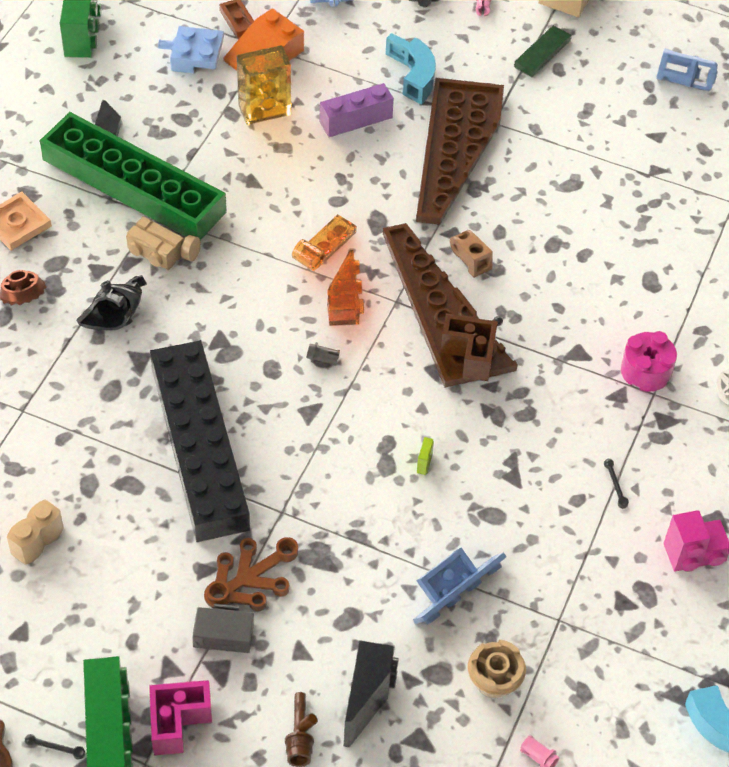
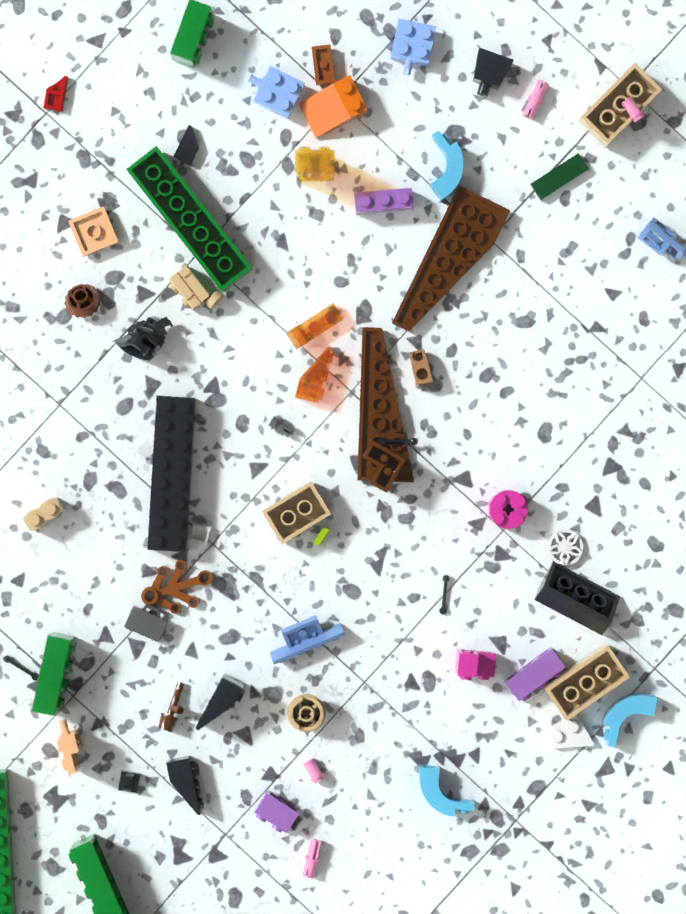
camera: 20 degrees right, 35 degrees up
(176, 706) = (98, 672): dark pink brick -> none
(261, 502) = (200, 533): none -> white tile
(381, 434) = (296, 512): none -> tan brick

